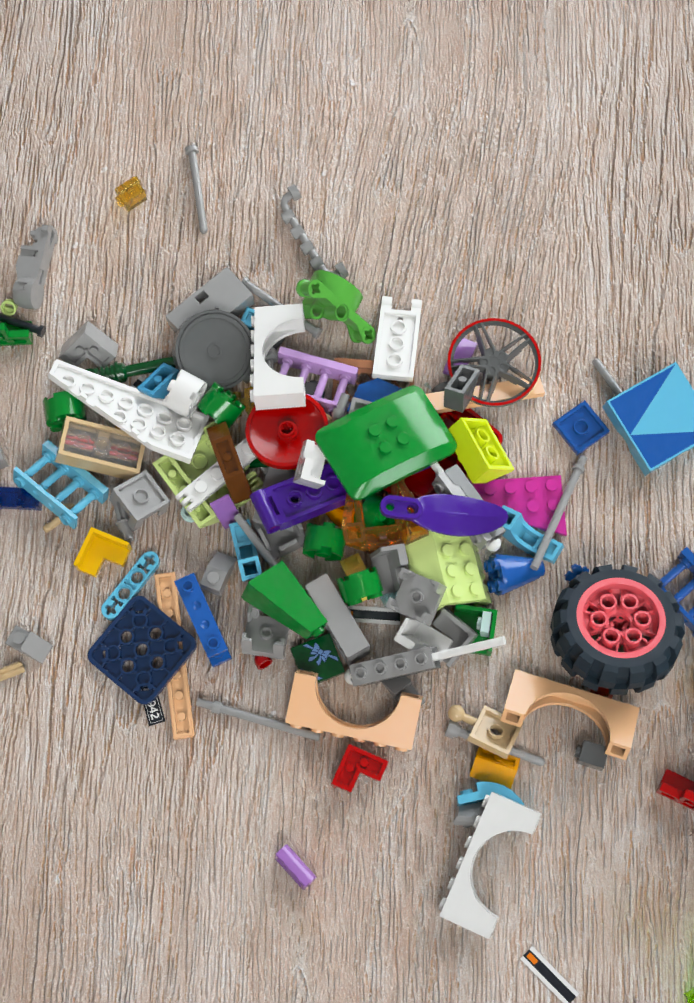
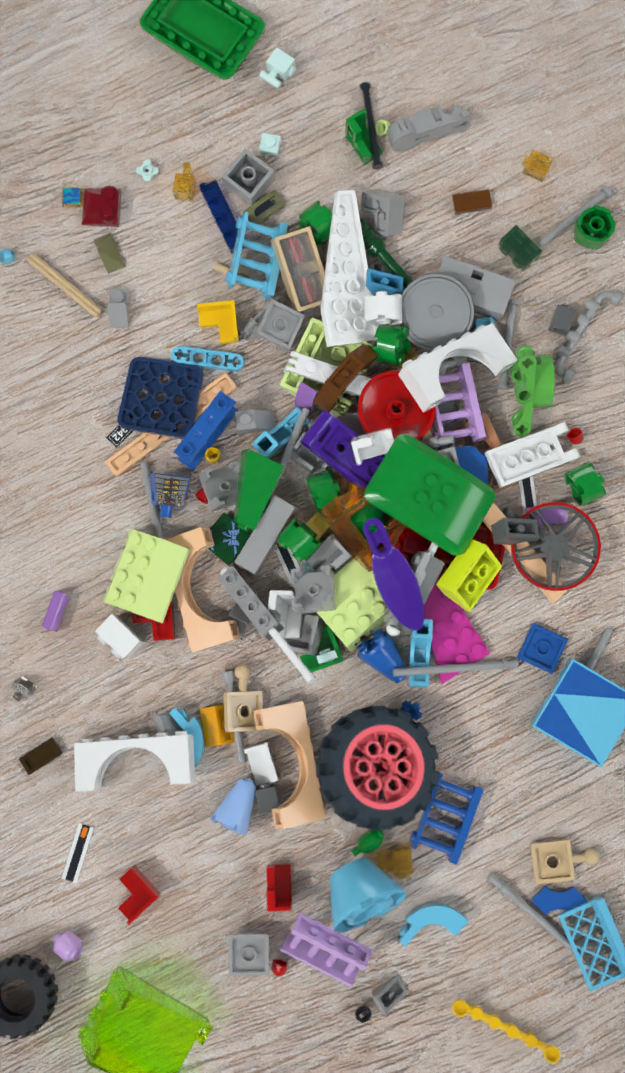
camera: 60 degrees right, 10 degrees up
(17, 452) = (265, 207): none -> olive slope
(128, 268) = (472, 201): none -> reddish brown tile
(197, 249) = (519, 248): none -> clear green brick
(218, 176) = (594, 237): none -> green brick
(224, 629) = (211, 452): none -> yellow hinge
(240, 690) = (168, 492): none -> torso
(286, 248) = (561, 319): none -> dark grey brick
(310, 754) = (146, 575): none -> yellowish green slope
(354, 941) = (23, 688): none -> clear smoke tile
(358, 813) = (119, 637): none -> white brick
(400, 294) = (575, 436): none -> red hinge
(430, 365) = (527, 493): none -> sticker
(432, 961) = (40, 756): none -> dark brown tile
(450, 307) = (585, 484): none -> green brick
(554, 741) = (262, 763): none -> white panel
(586, 788) = (237, 807): none -> light blue cone
(626, 931) = (142, 894): none -> red panel
(682, 680) = (368, 842): none -> green plant

